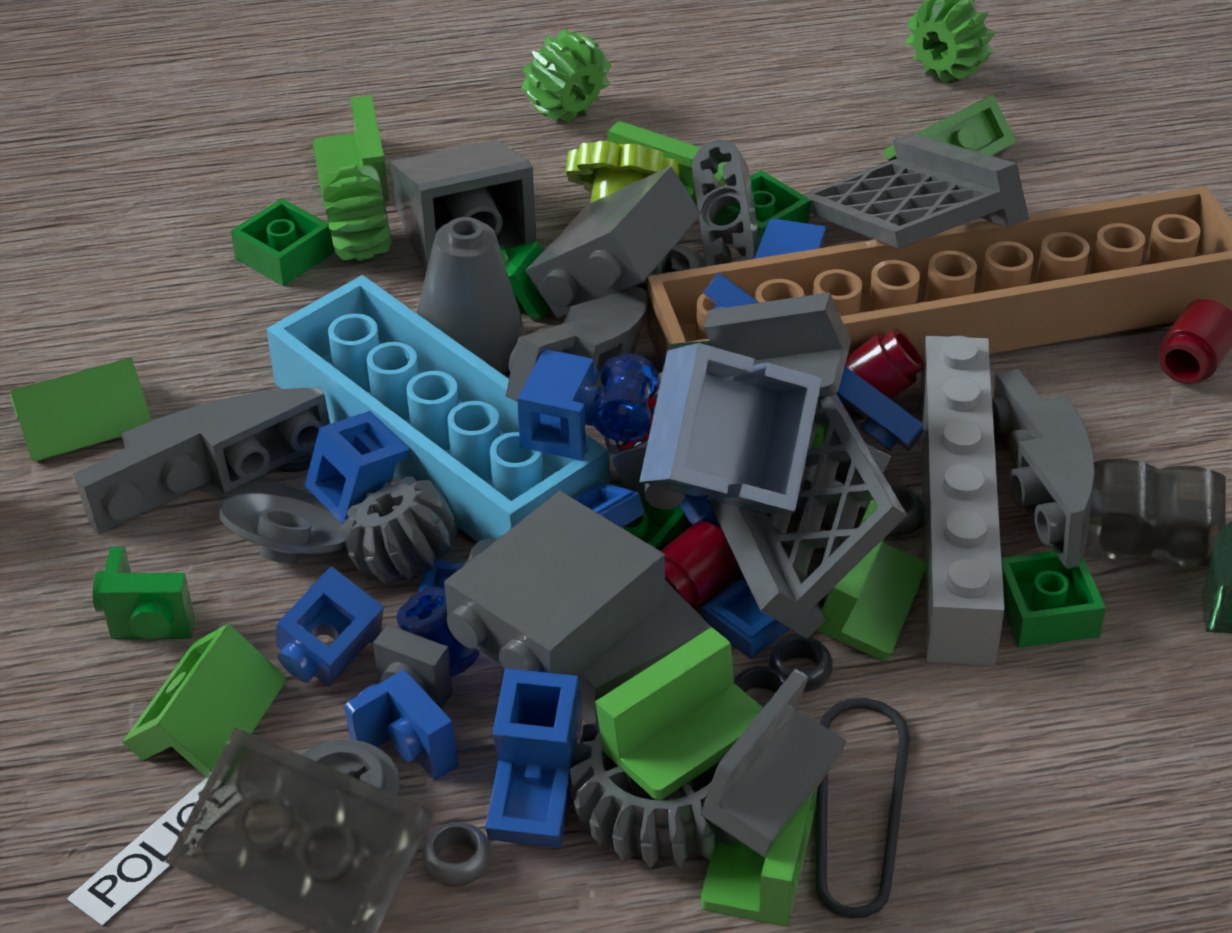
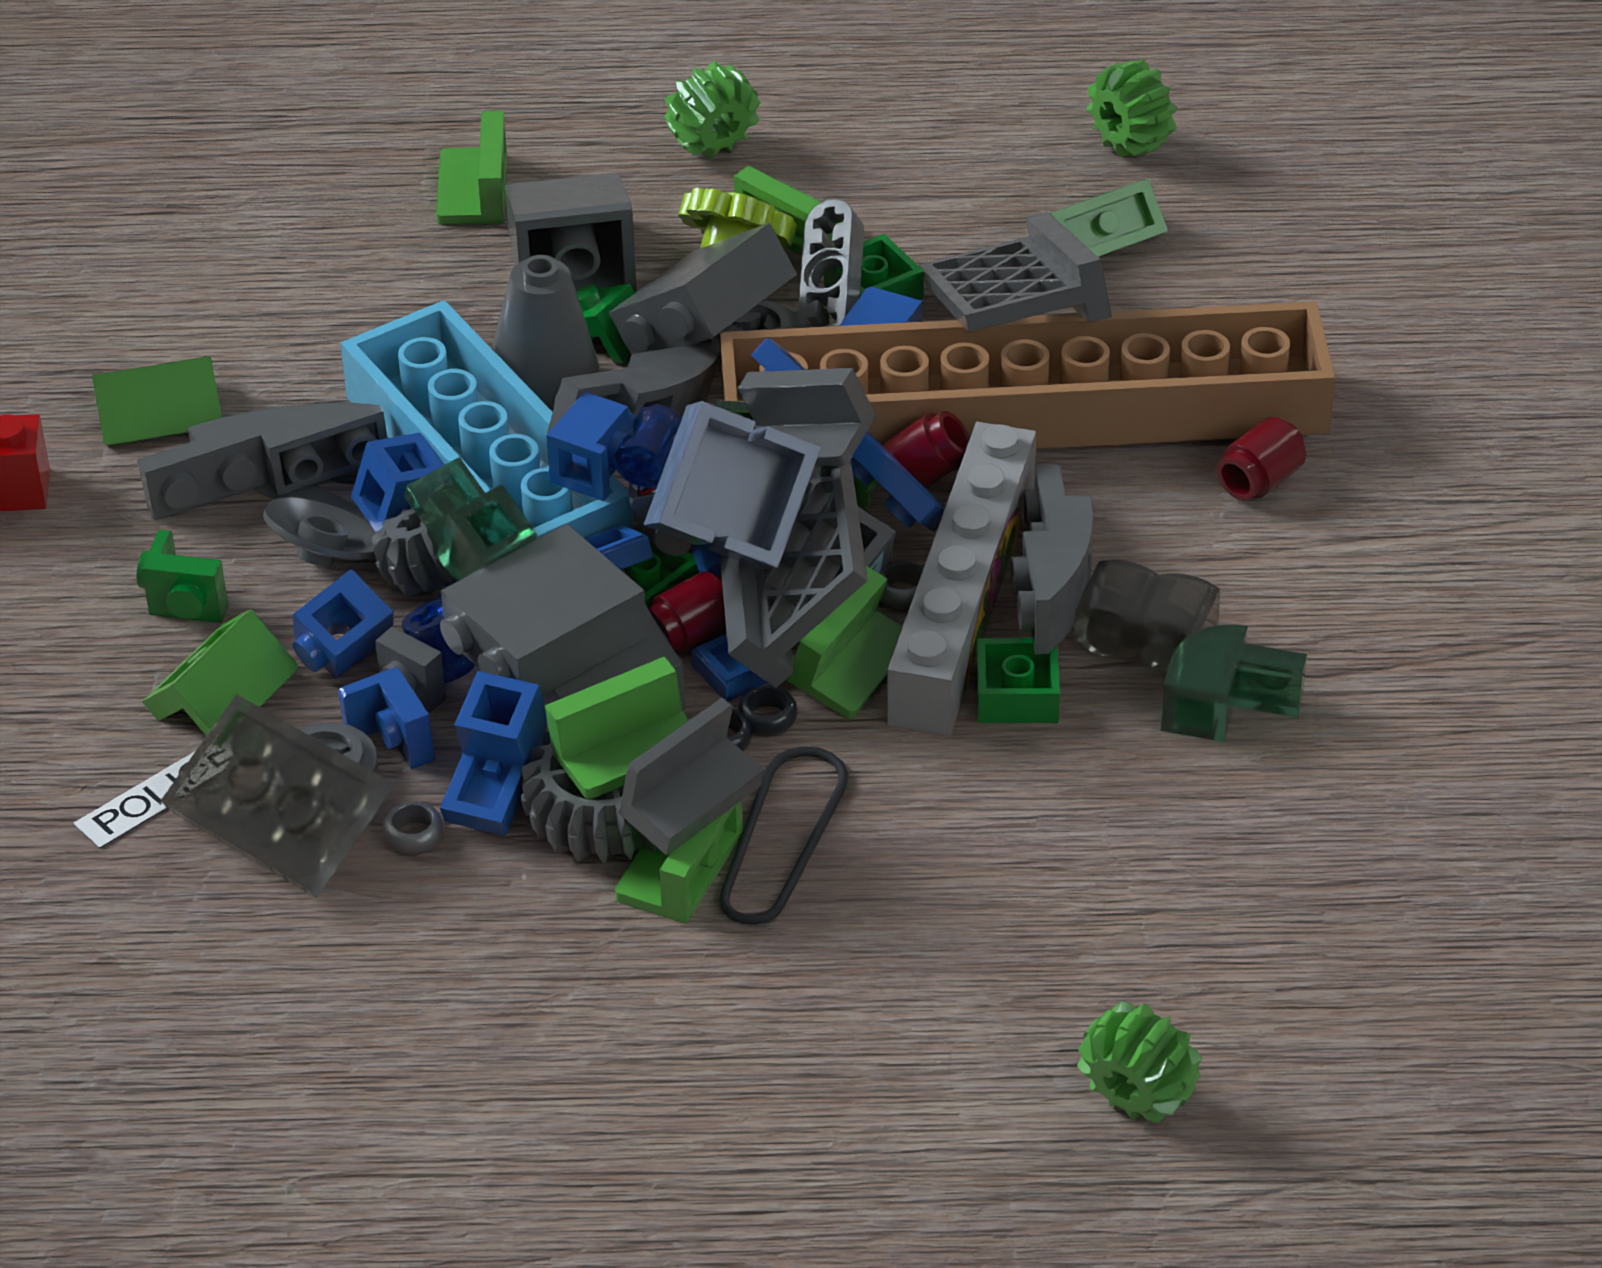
camera: 10 degrees right, 0 degrees up
(282, 241) = (384, 255): green piece -> none
(356, 212) = (460, 234): bright green gear -> none
(453, 507) = (466, 521): none -> clear green brick

